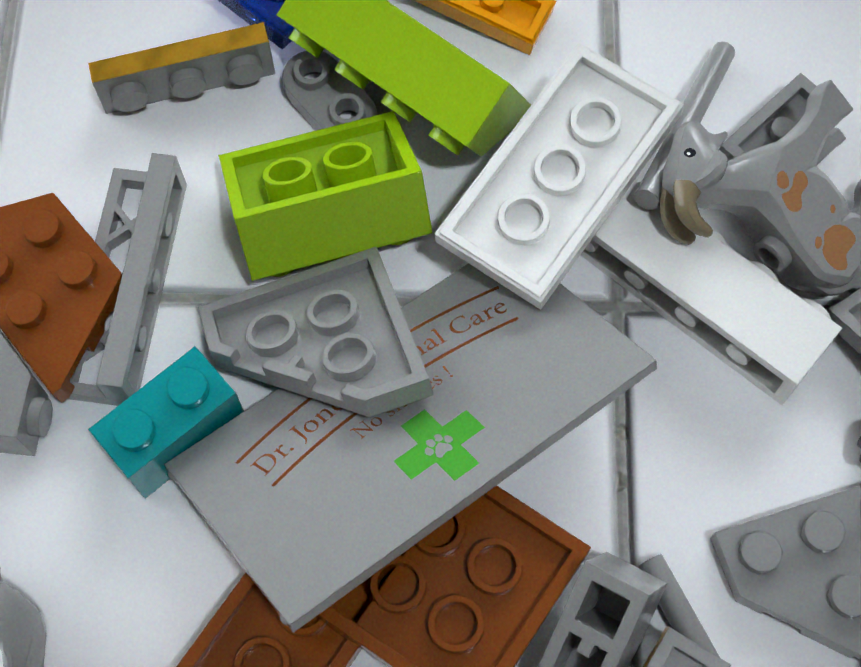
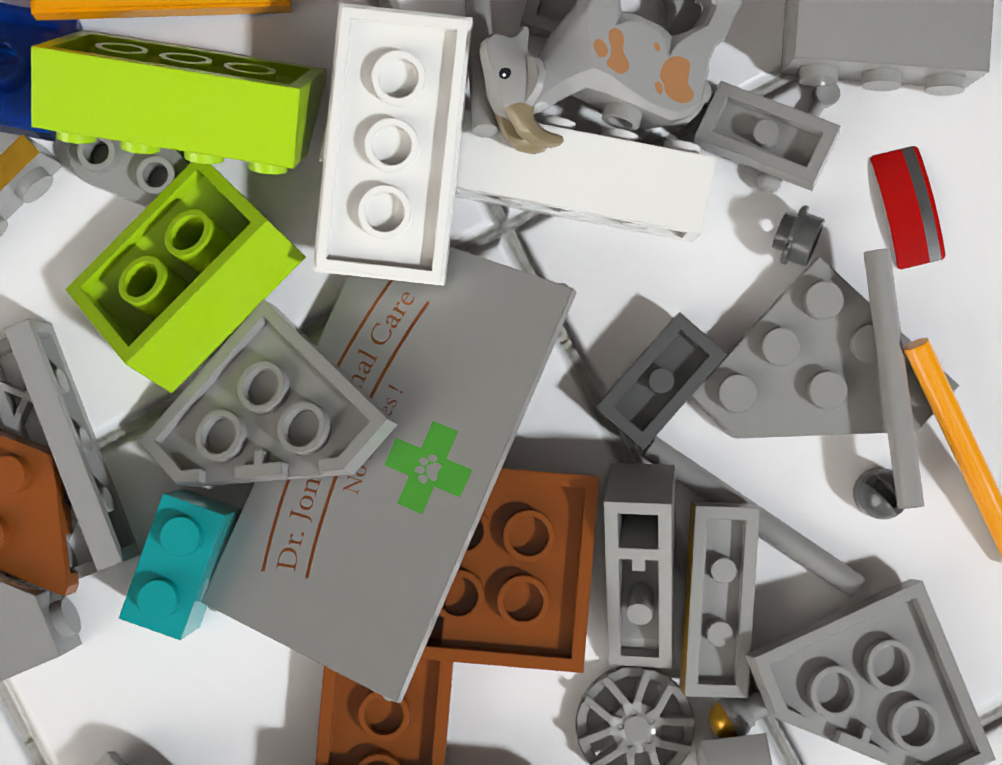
camera: 30 degrees left, 20 degrees up
(691, 503) = (660, 380): none -> dark grey plate

